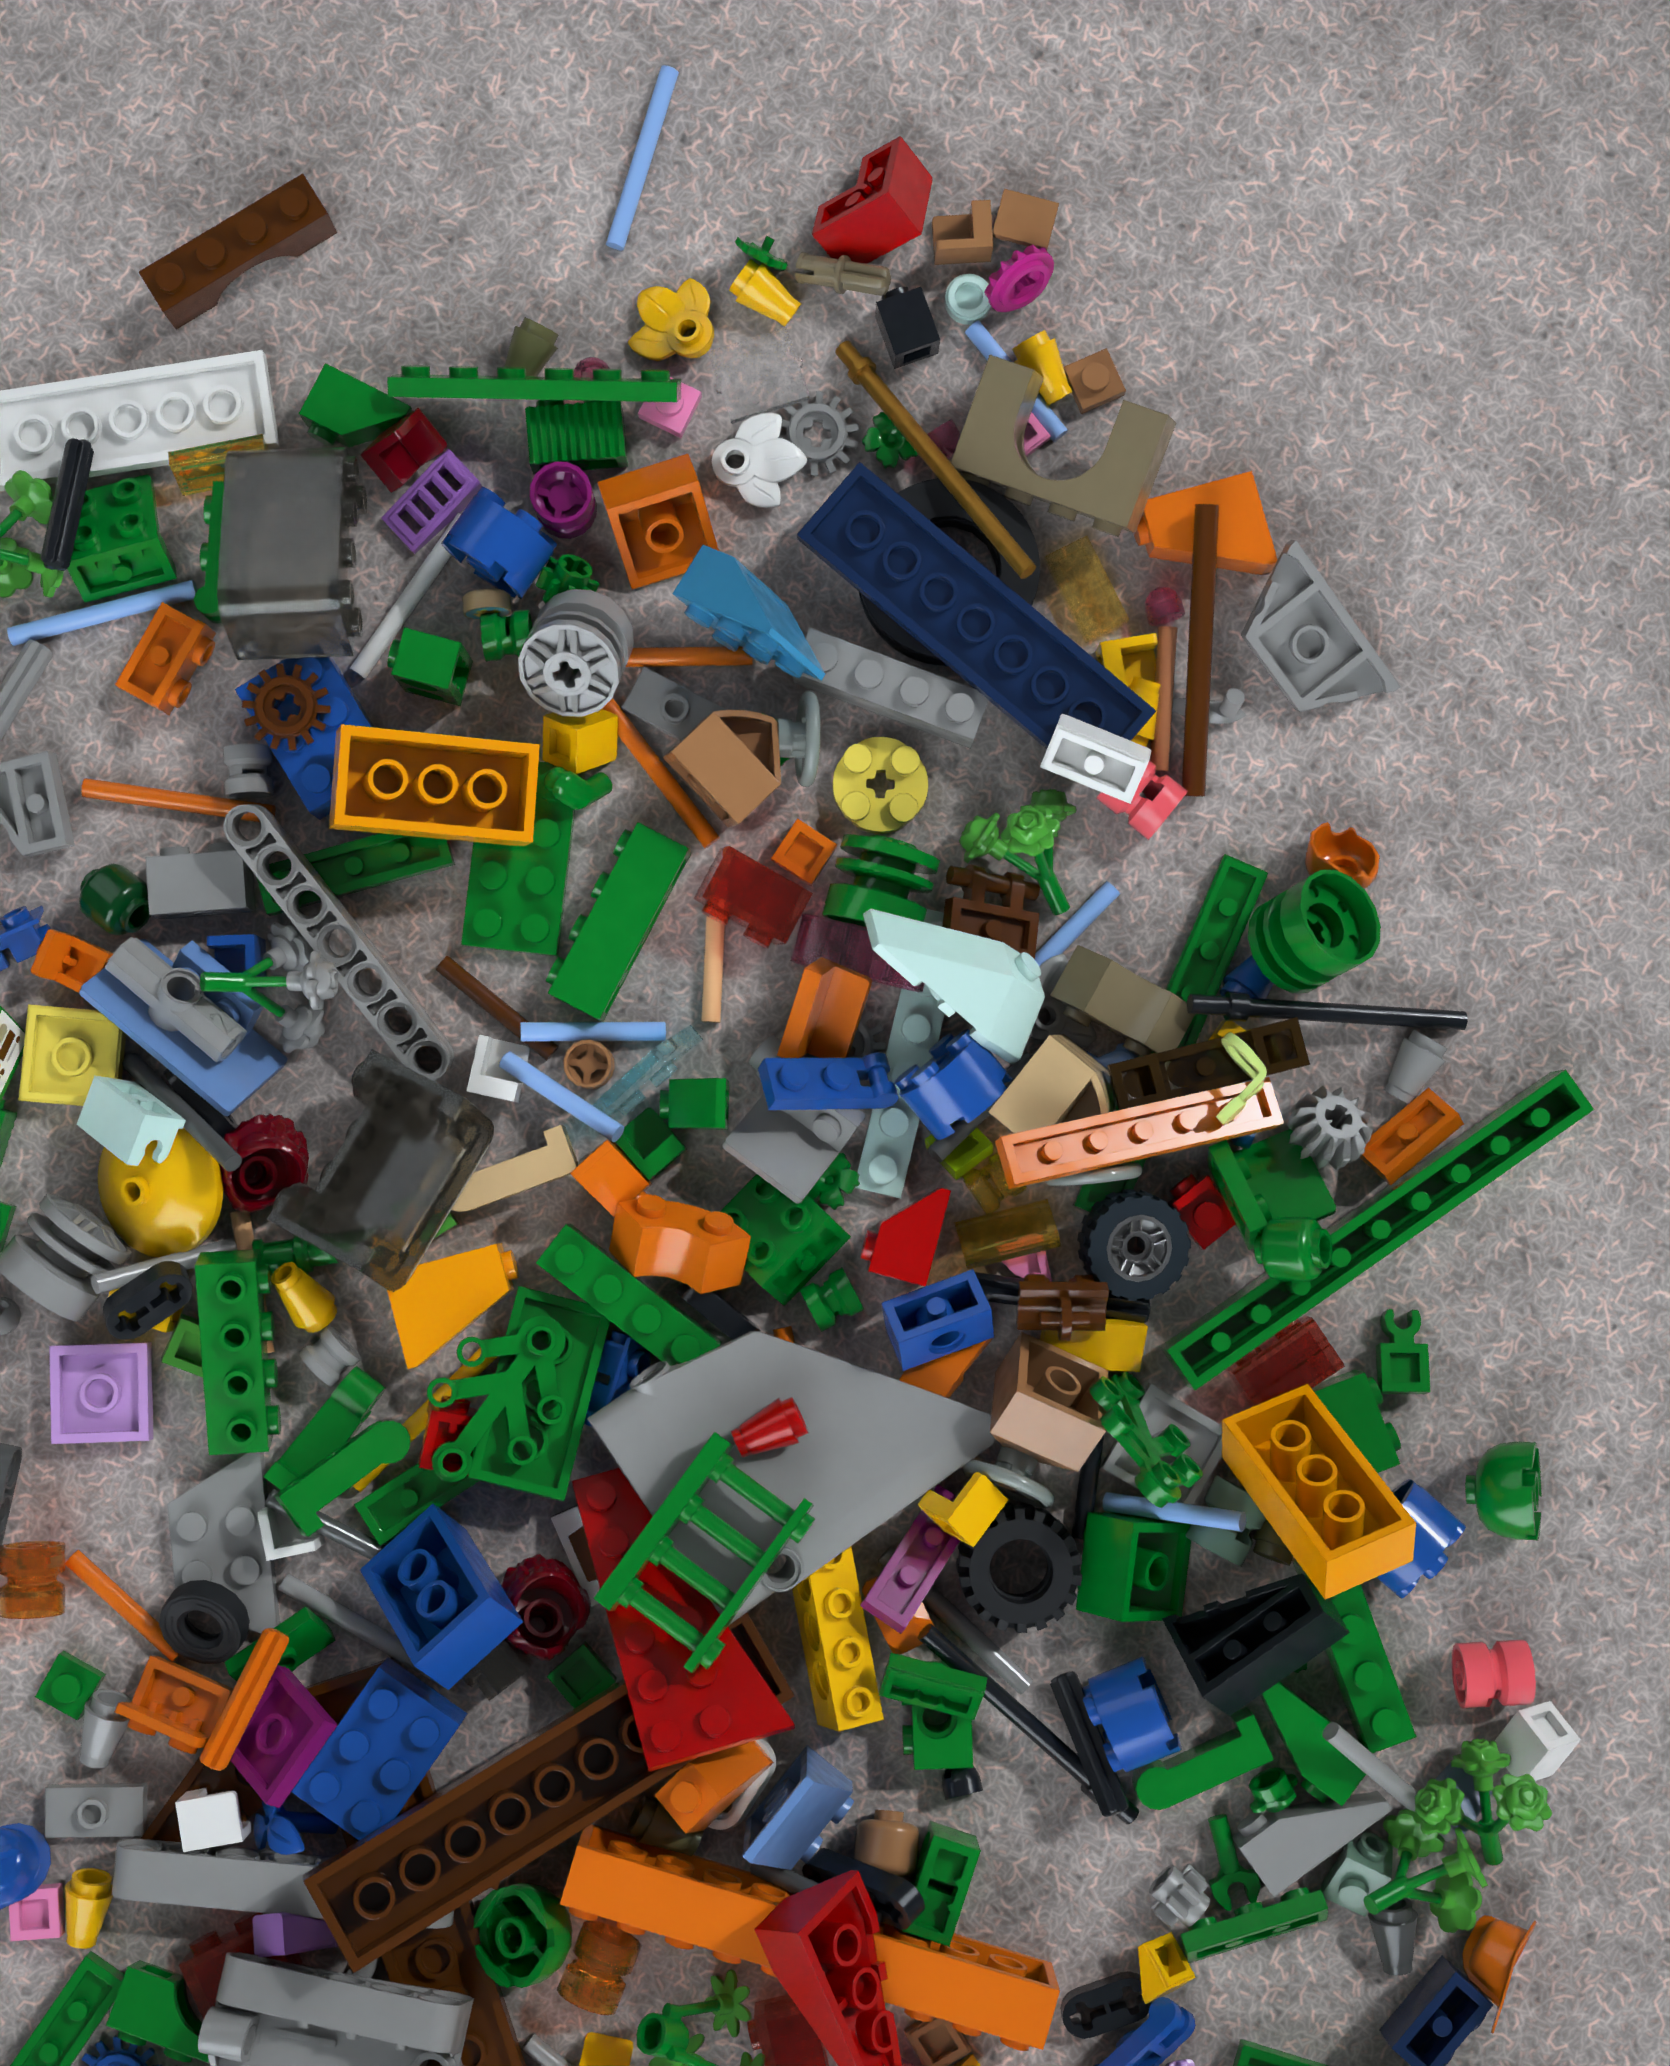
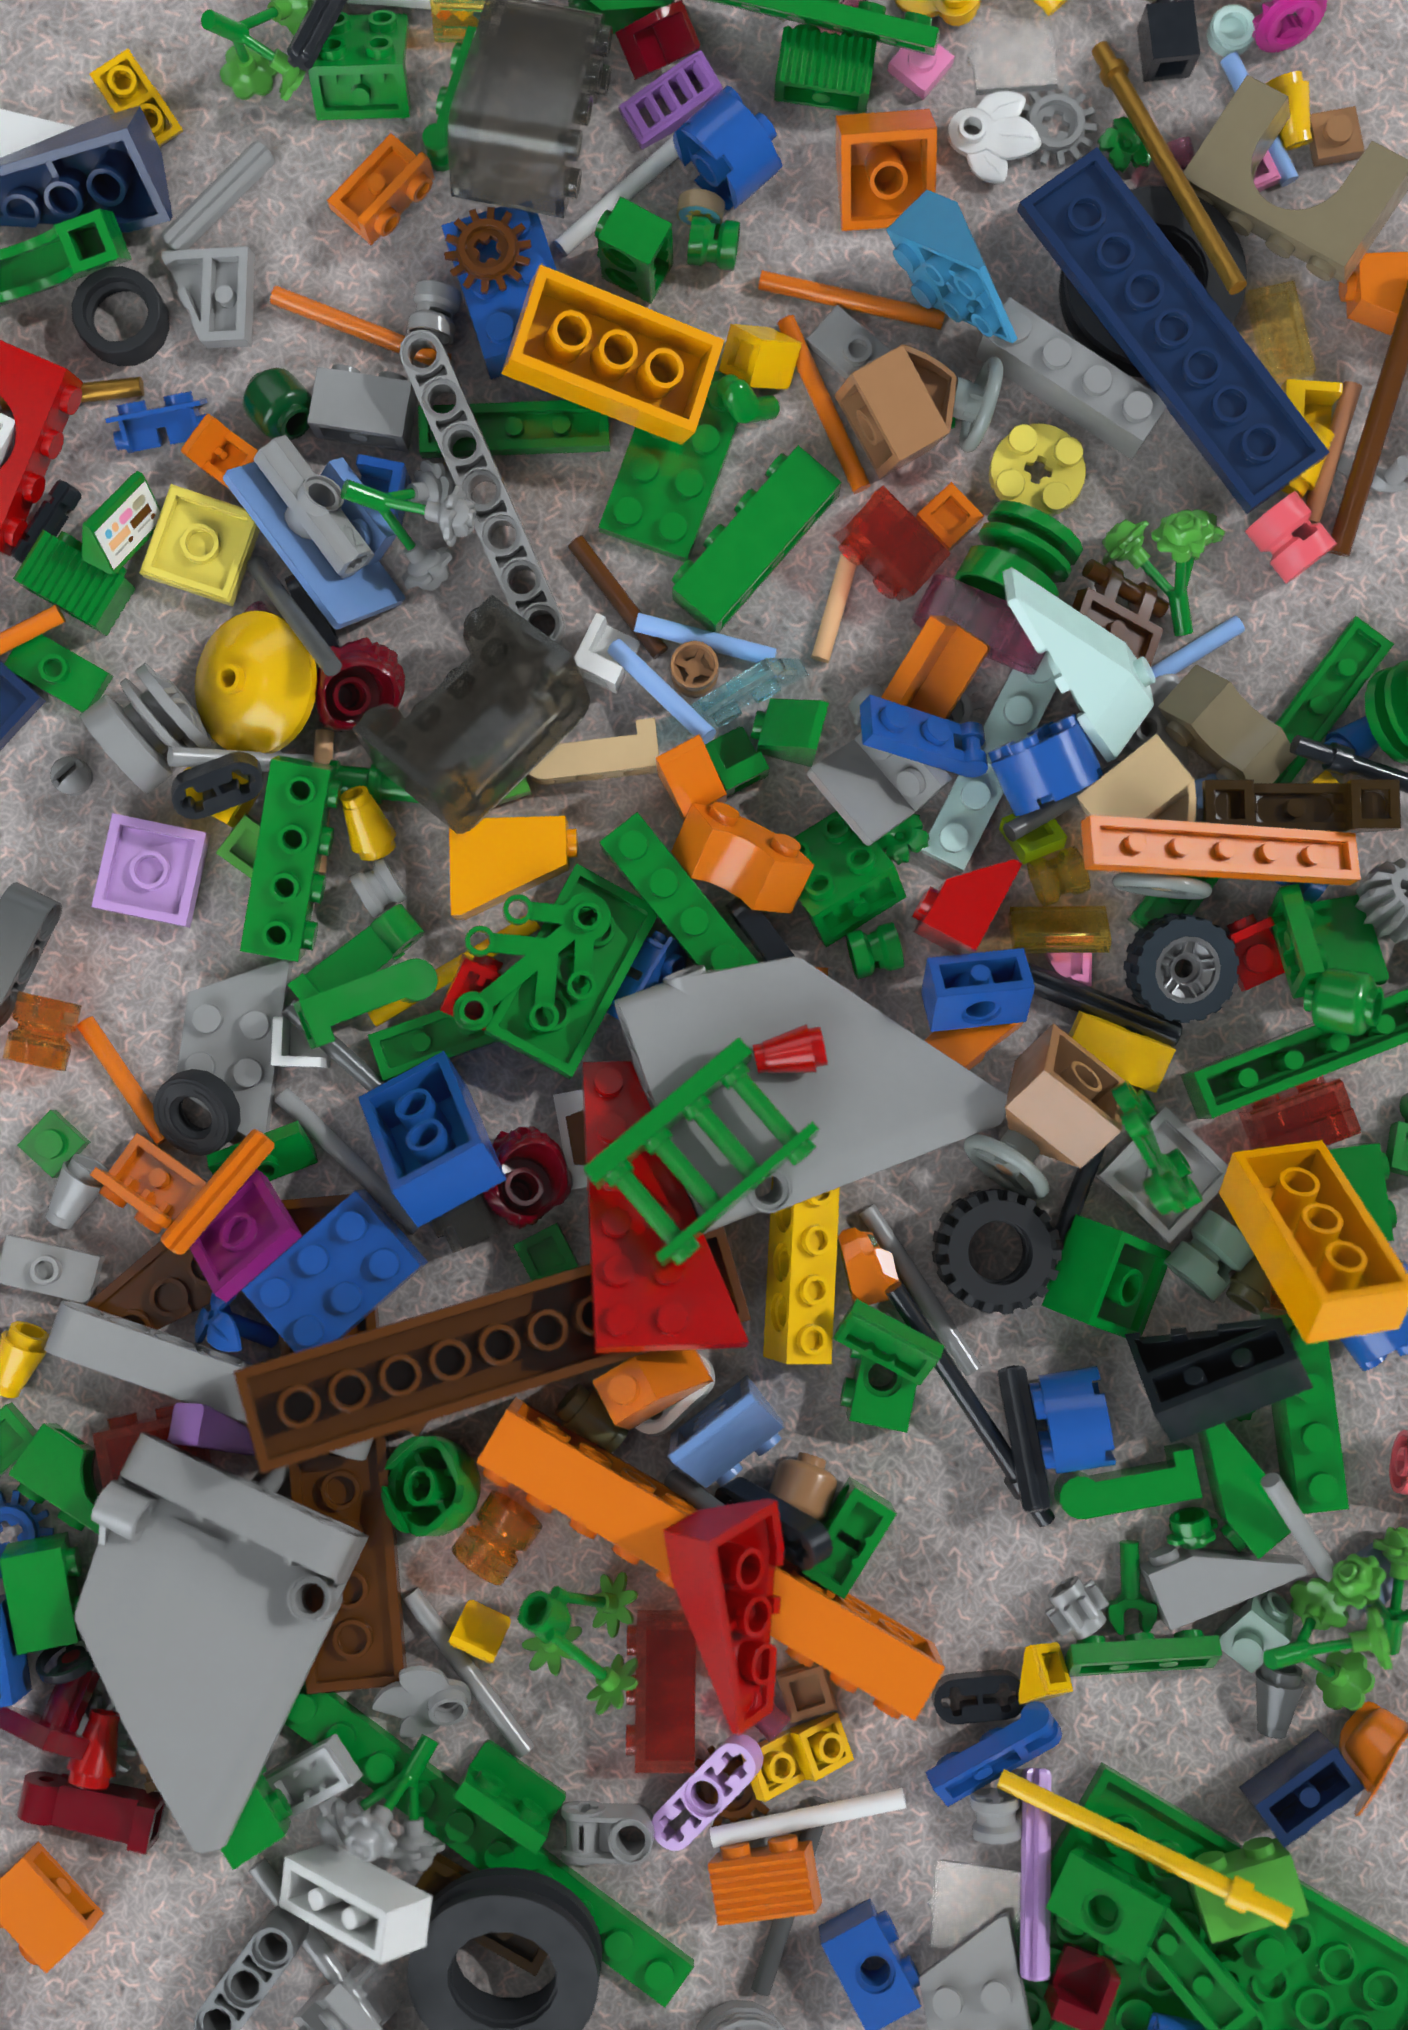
camera: 20 degrees right, 0 degrees up
(101, 612) = (329, 133): light blue bar -> none
(127, 1119) = (238, 608): light aqua hinge -> none
(210, 1819) = (156, 1300): white panel -> none
(563, 500) = (802, 121): magenta wheel -> none
(565, 574) = (783, 206): green gear -> none
(576, 653) = (797, 248): light grey wheel -> none
(911, 1570) = (901, 1218): magenta plate -> none
(960, 1782) = (889, 1445): black hinge -> none
(970, 1511) = (962, 1184): yellow panel -> none
(1062, 1305) = (1100, 1005): reddish brown hips -> none
(1096, 758) = (1261, 483): white slope -> none
(1163, 606) = (1352, 364): clear pink hinge -> none
(1175, 1512) = (1162, 1233): light blue bar -> none
(1255, 1069) = (1341, 836): yellowish green piece -> none

